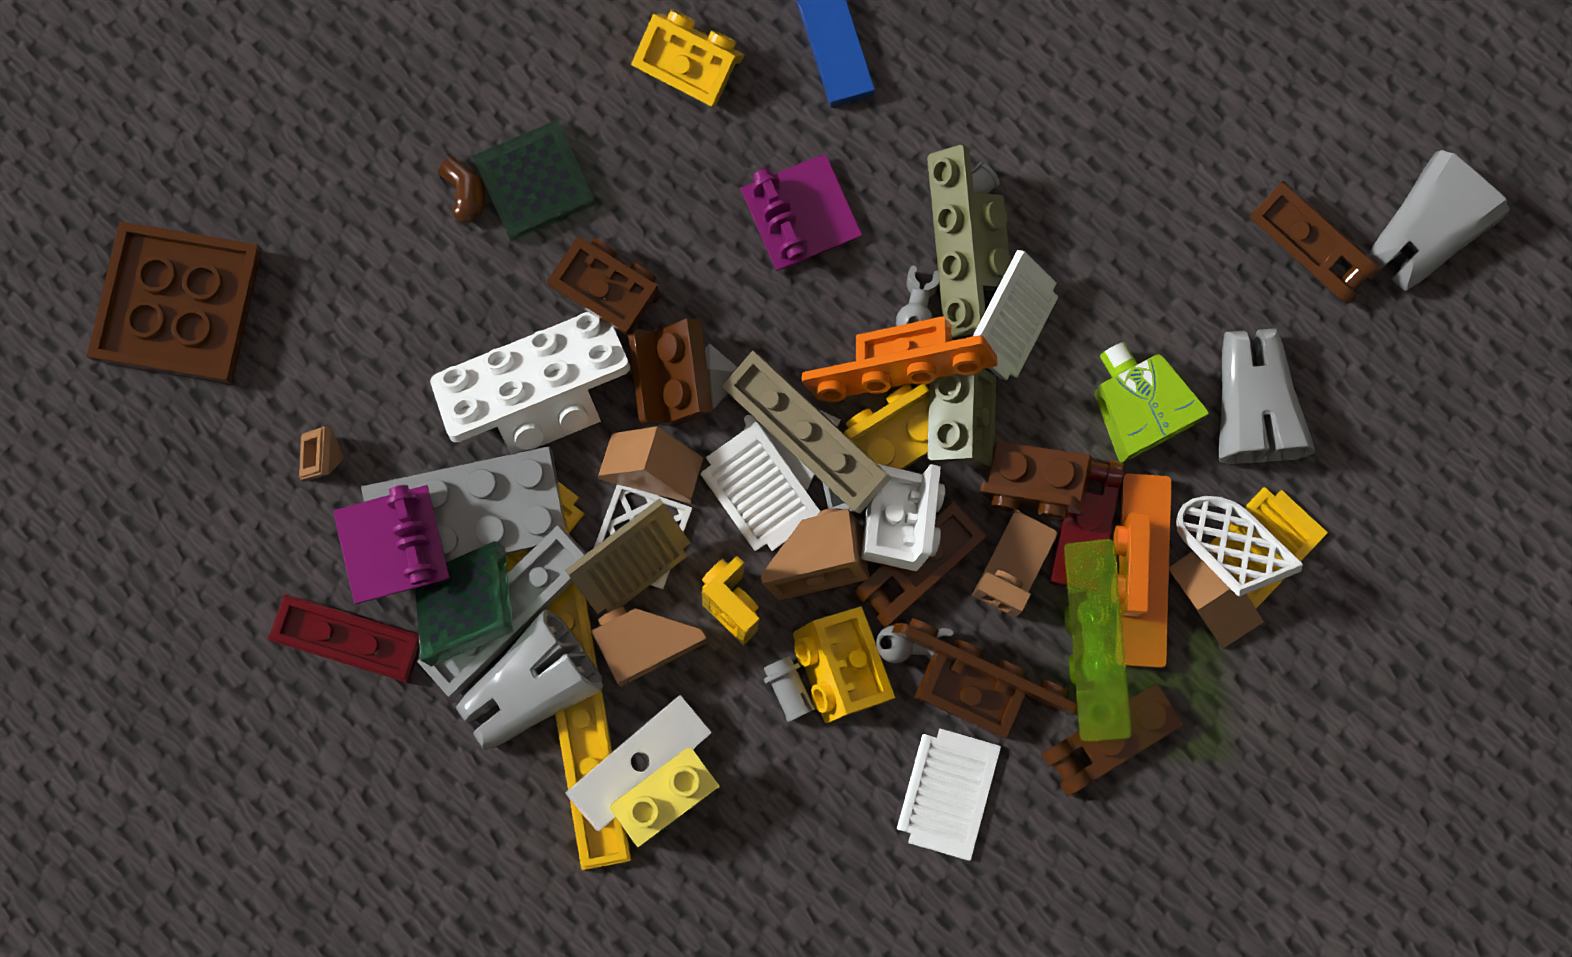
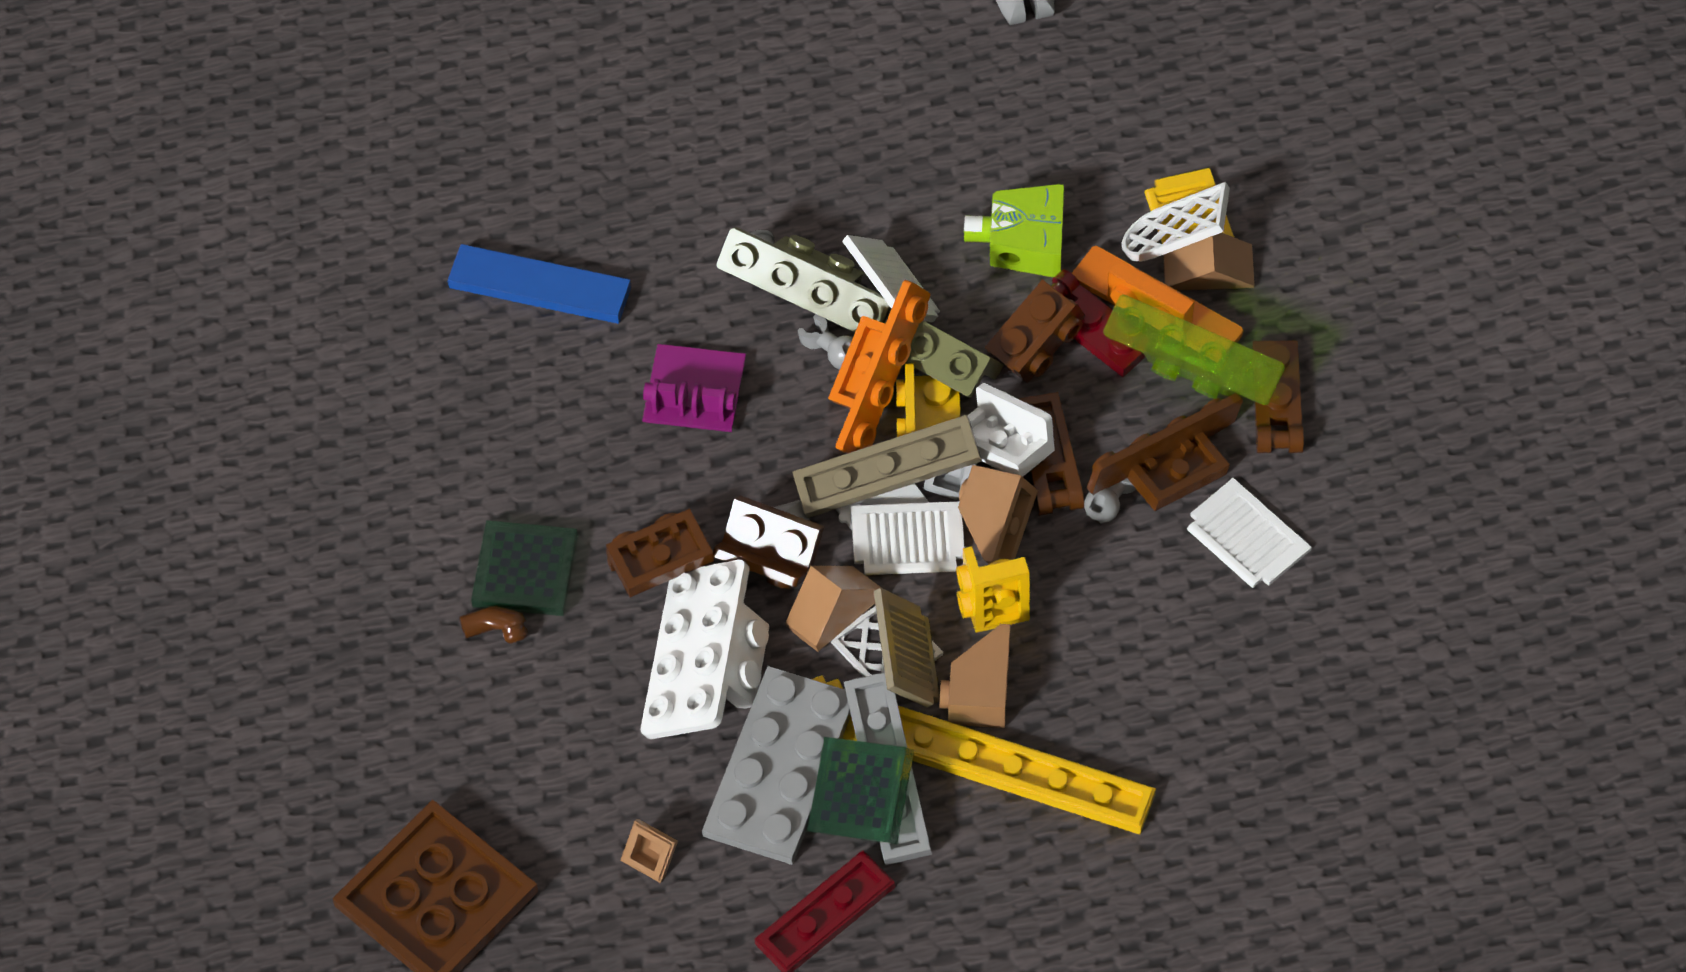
camera: 55 degrees left, 20 degrees down
(391, 543) = (772, 820): magenta hinge -> none
(531, 682) = (960, 778): light grey piece -> none
(656, 742) = (1079, 733): white tile -> none
(663, 796) = (1122, 723): light yellow bracket -> none
(686, 56) = (504, 397): yellow bracket -> none
(789, 688) = (1088, 599): light grey pin -> none
(842, 664) = (1093, 552): yellow bracket -> none
(1015, 564) = (1093, 389): medium nougat bracket -> none
(1259, 403) = (1077, 154): light grey piece -> none
(1314, 241) = (972, 49): reddish brown plate -> none

